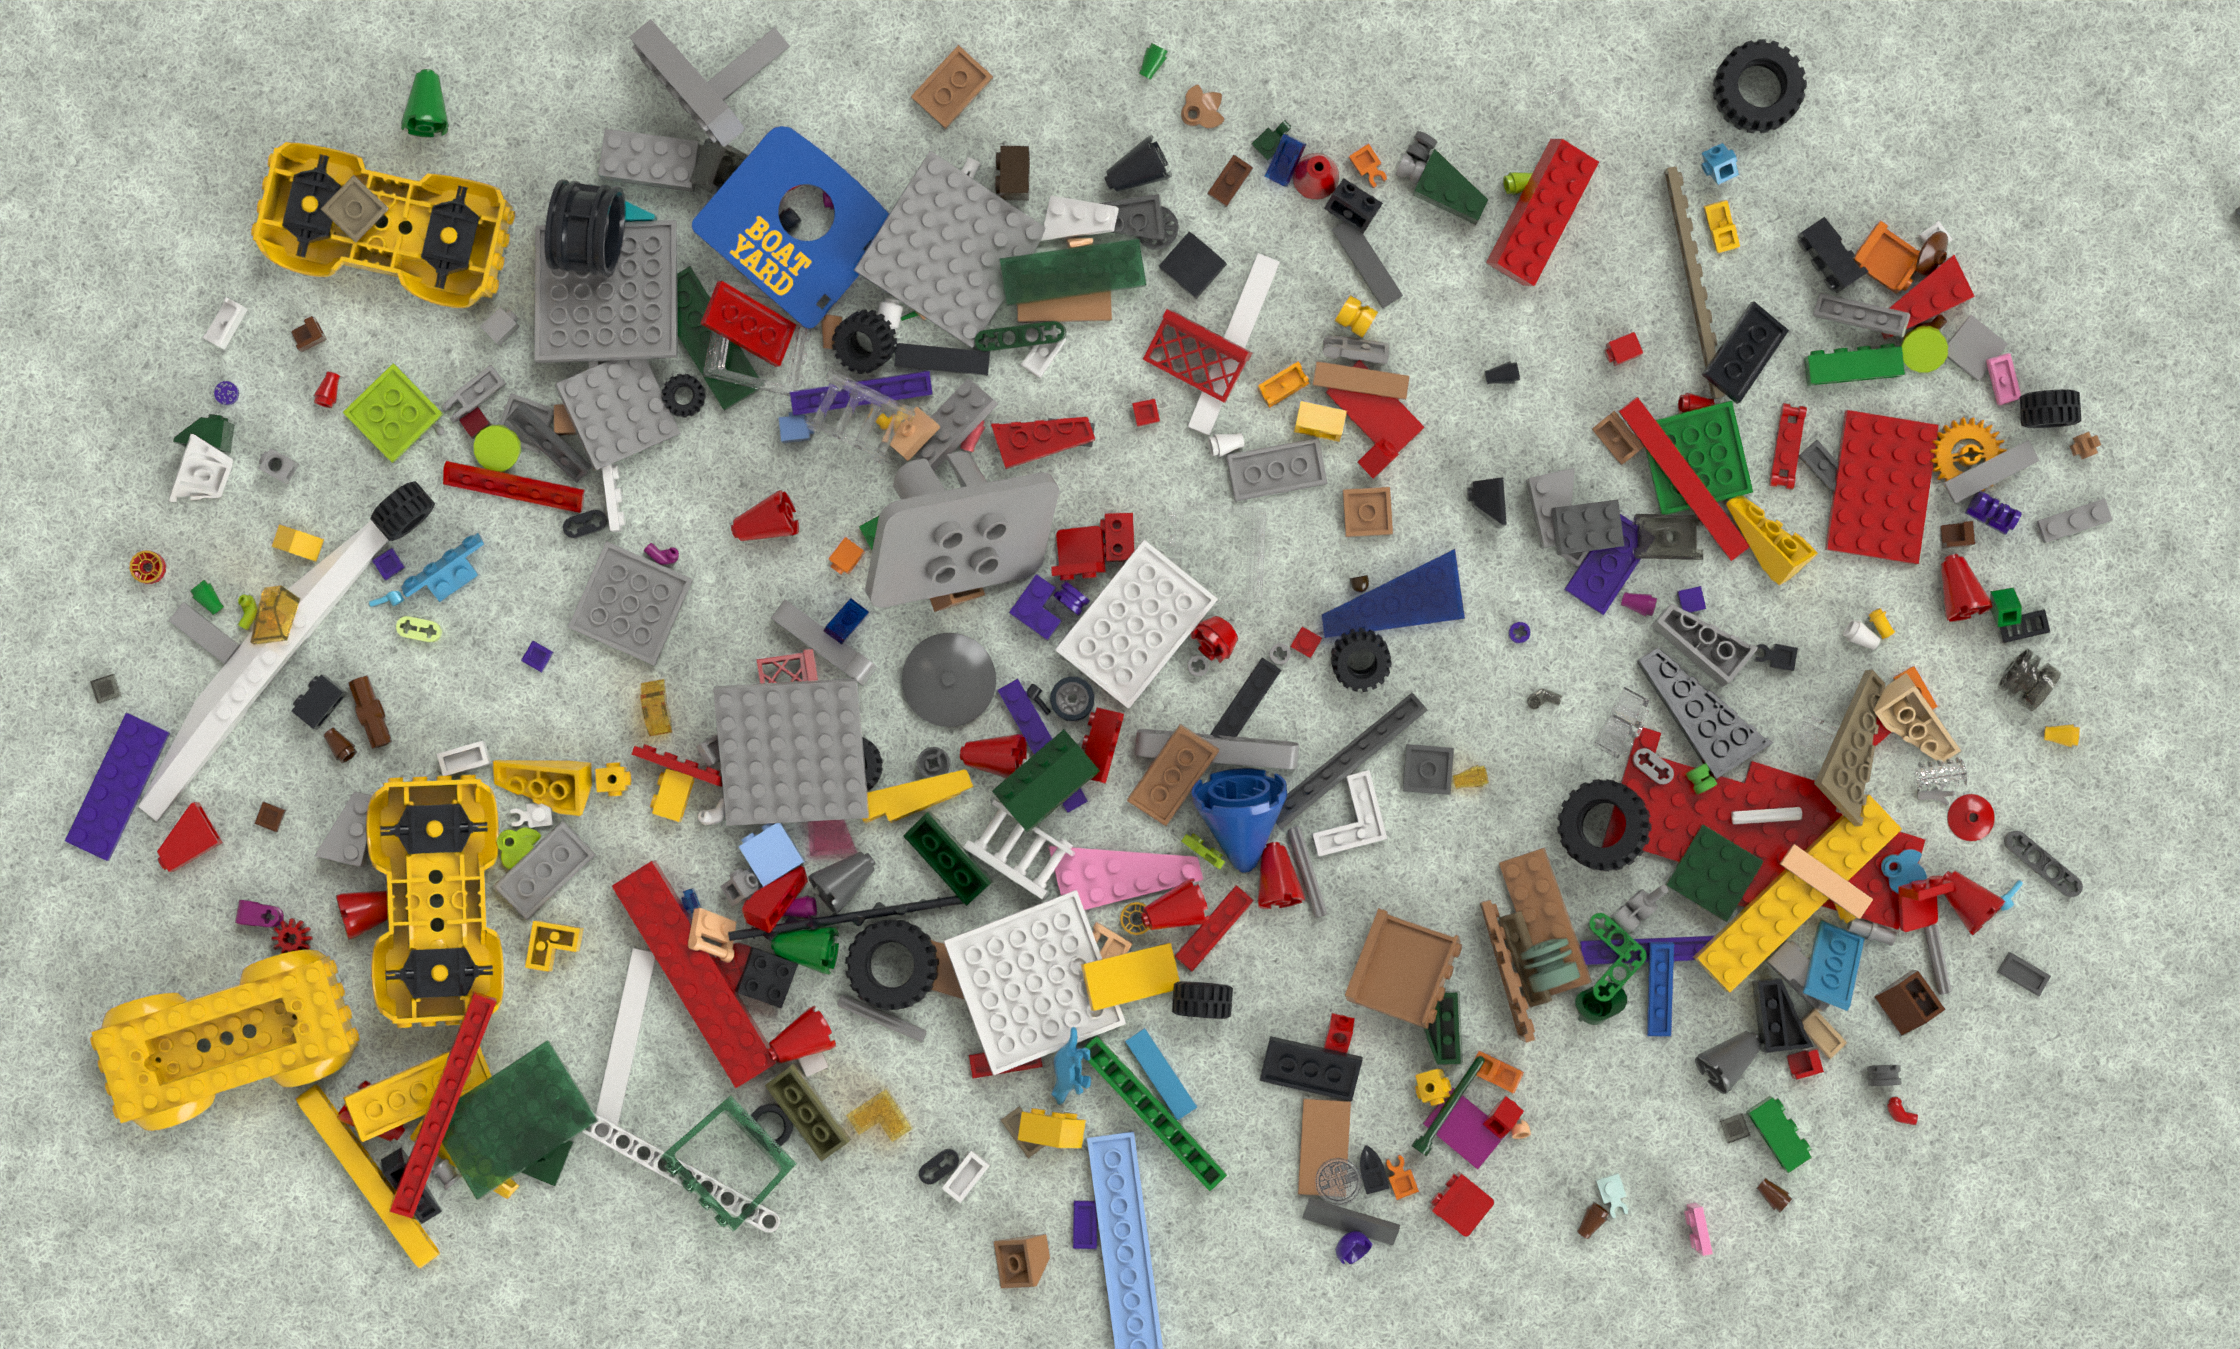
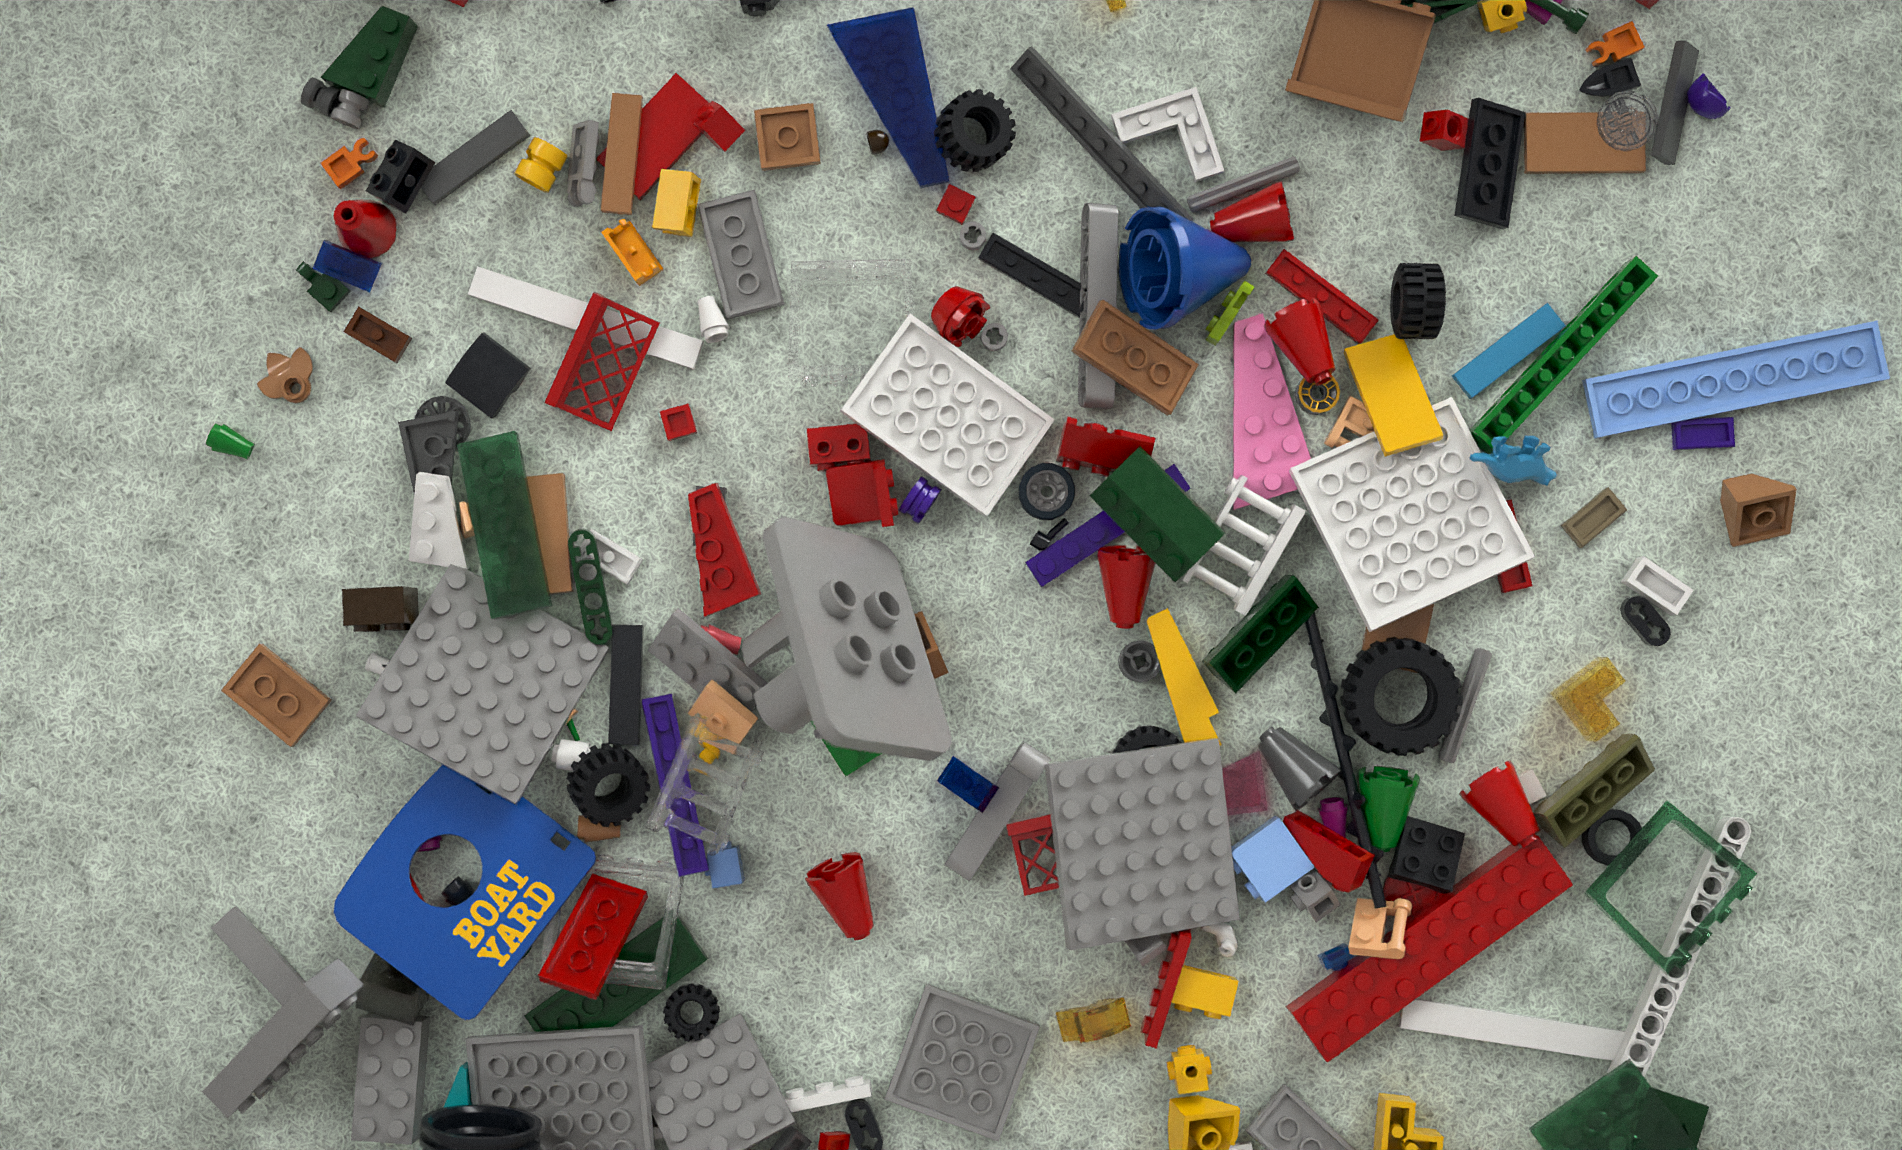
camera: 90 degrees left, 0 degrees up
(662, 557) = (900, 1025): magenta arm -> none
(846, 556) = (885, 790): orange brick -> none
(949, 679) = (1032, 649): dark grey dish -> none
(1030, 608) = (935, 551): dark purple brick -> none
(1053, 1130) = (1596, 480): yellow brick -> none
(1138, 167) = (366, 450): black cone -> none
(1428, 769) = (1105, 42): dark grey plate -> none

